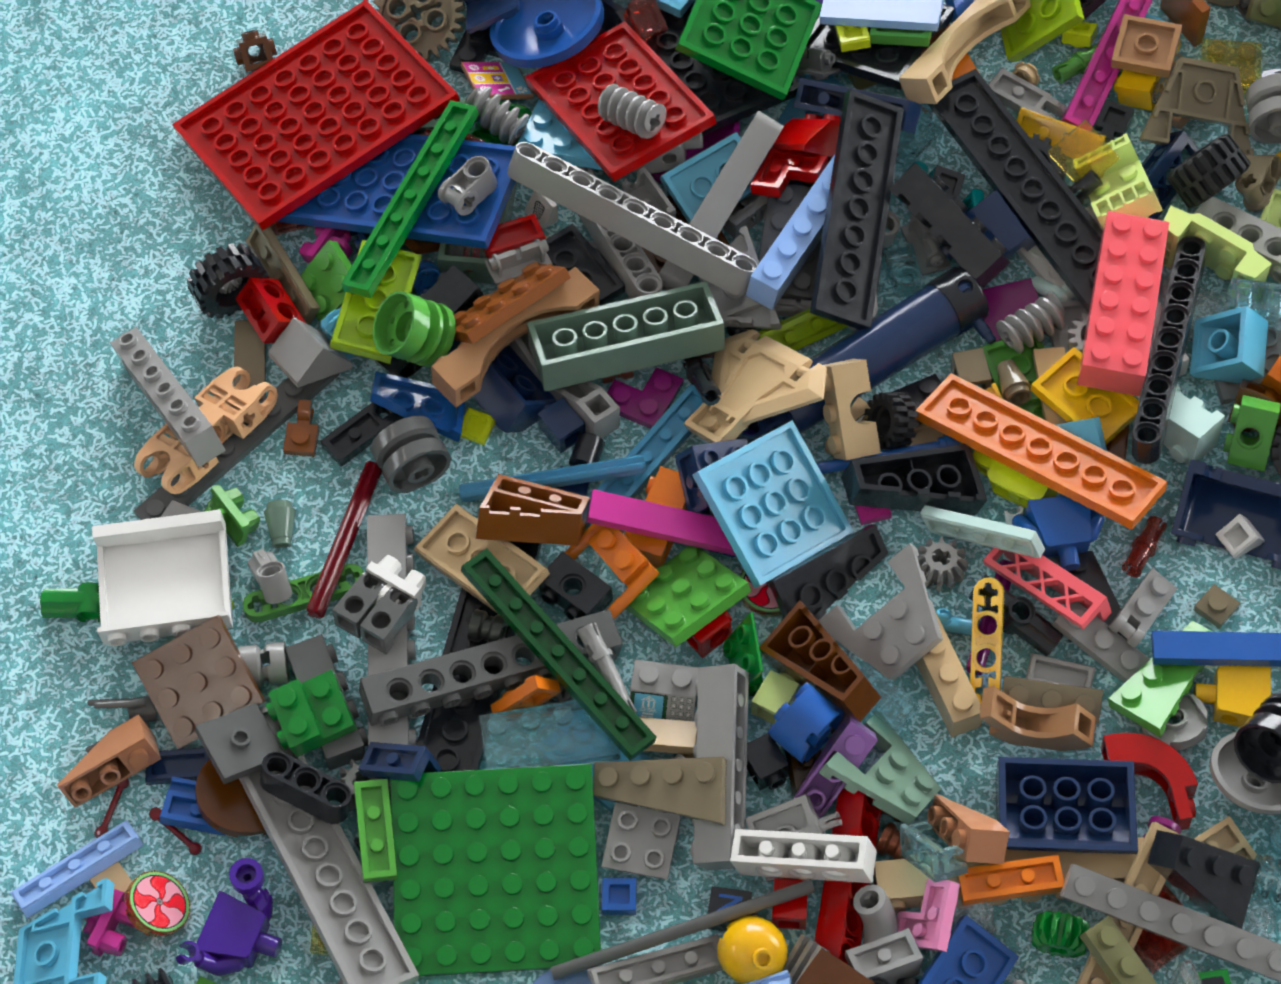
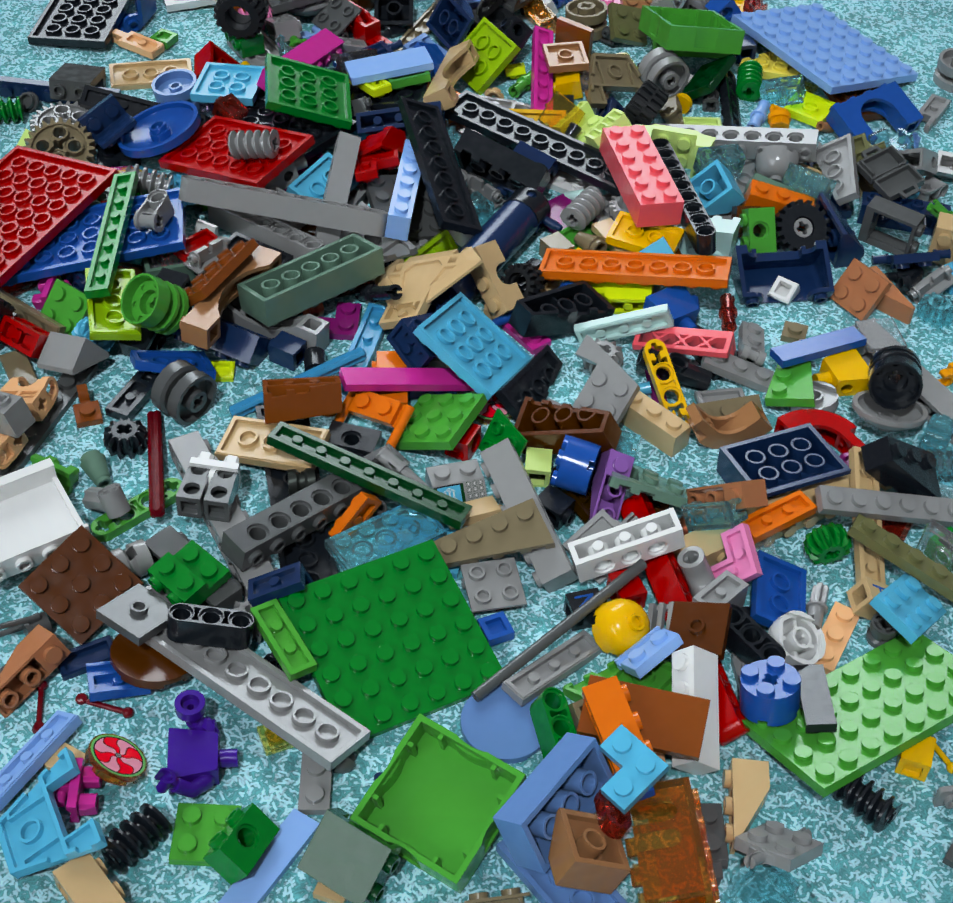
camera: 30 degrees left, 15 degrees down
(318, 499) = (125, 437): none -> black gear

